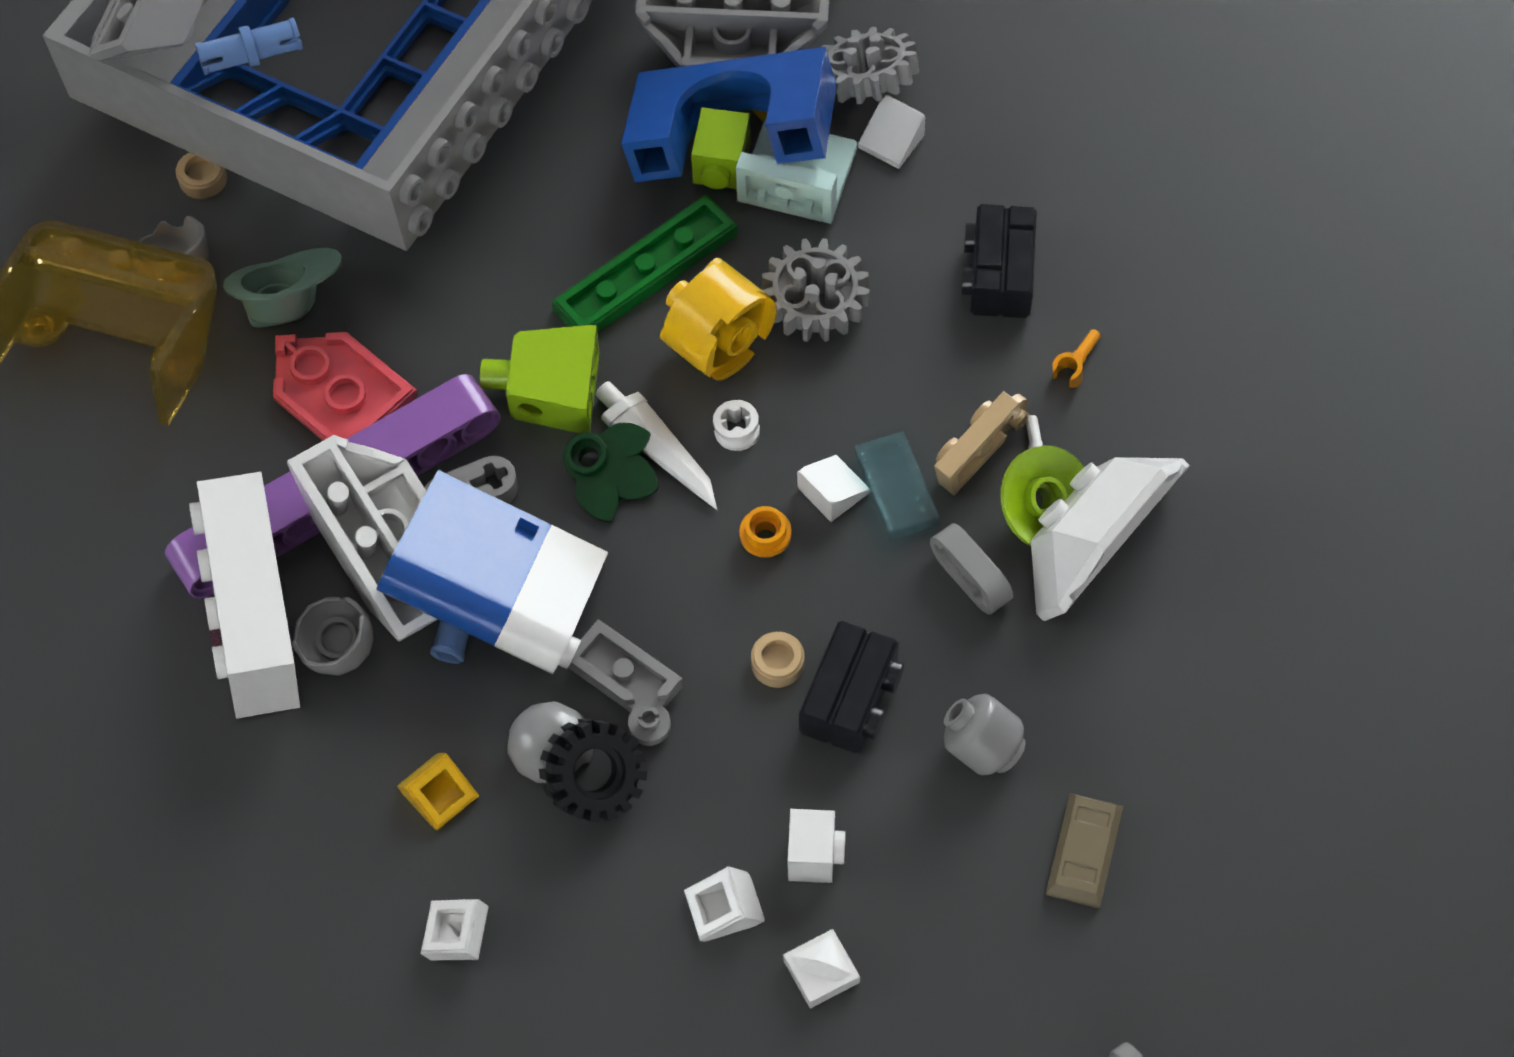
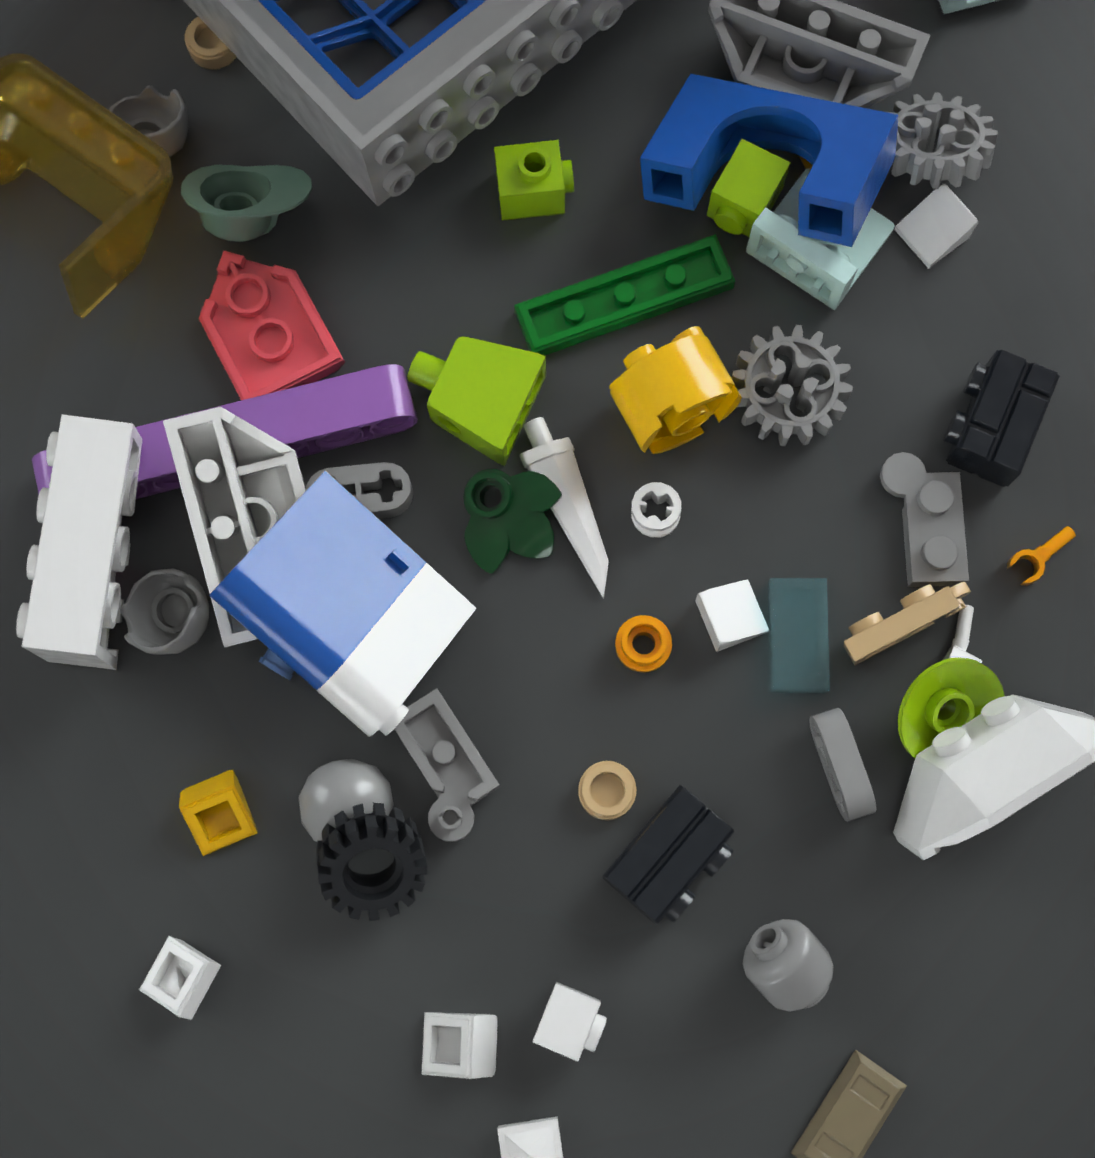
camera: 20 degrees right, 15 degrees up
(530, 197) = (532, 179): none -> lime brick
(972, 356) = (930, 521): none -> light grey hinge

